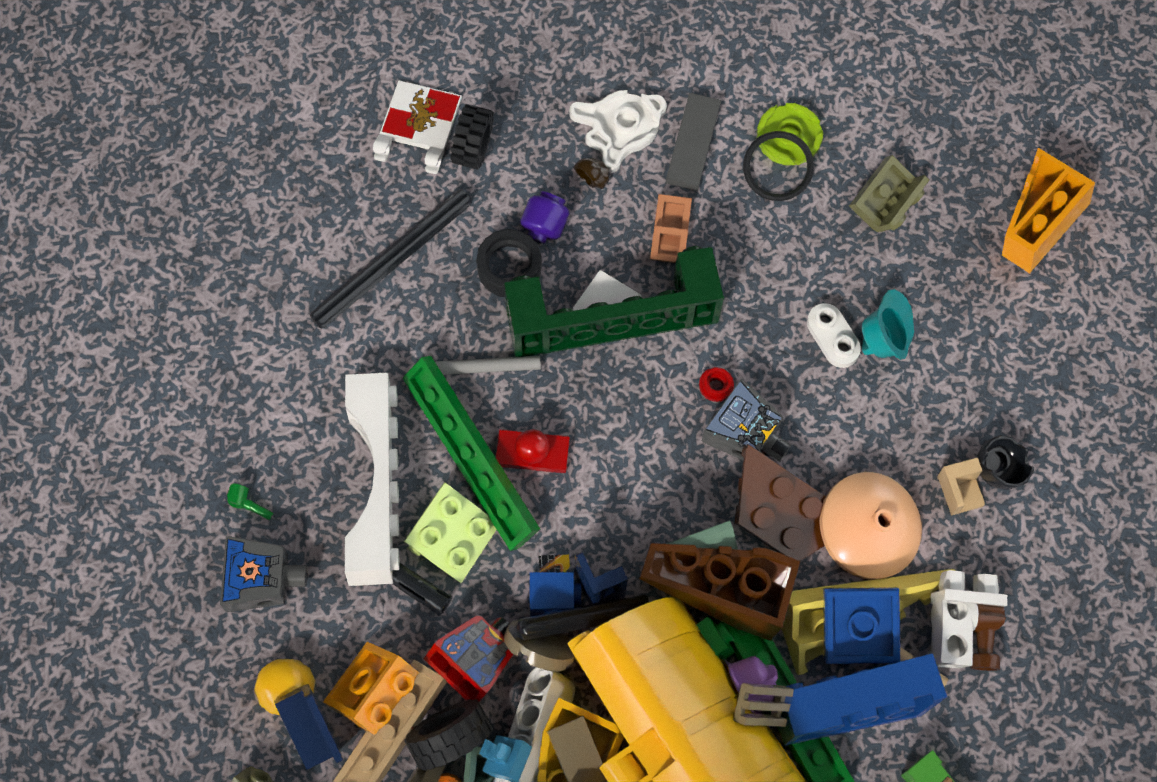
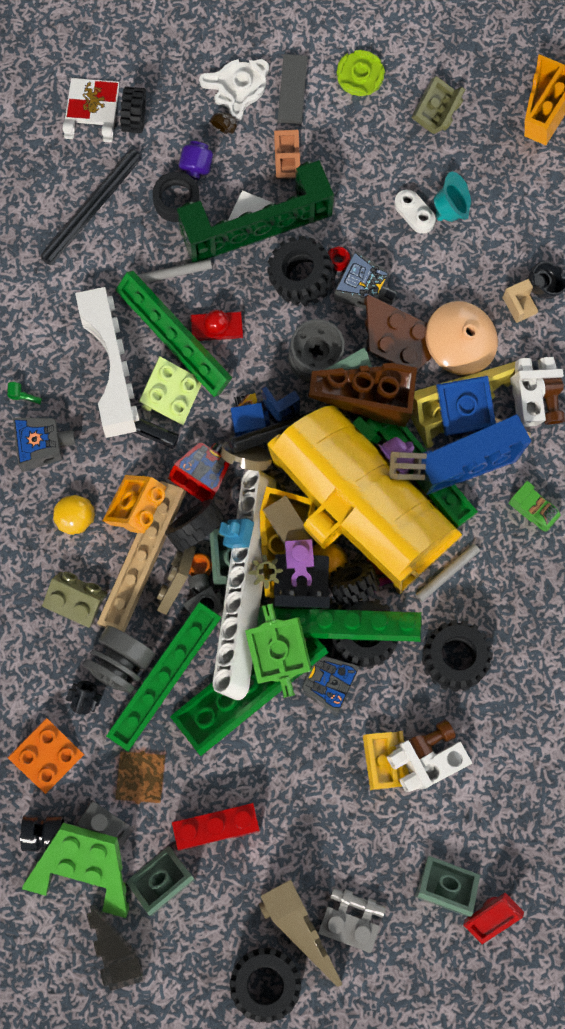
camera: 10 degrees left, 5 degrees up
(308, 727) = (96, 537): dark blue panel -> none
(649, 371) = (293, 254): none -> black tyre
(664, 490) = (312, 337): none -> dark grey wheel
(786, 196) = (353, 74): black tyre -> none

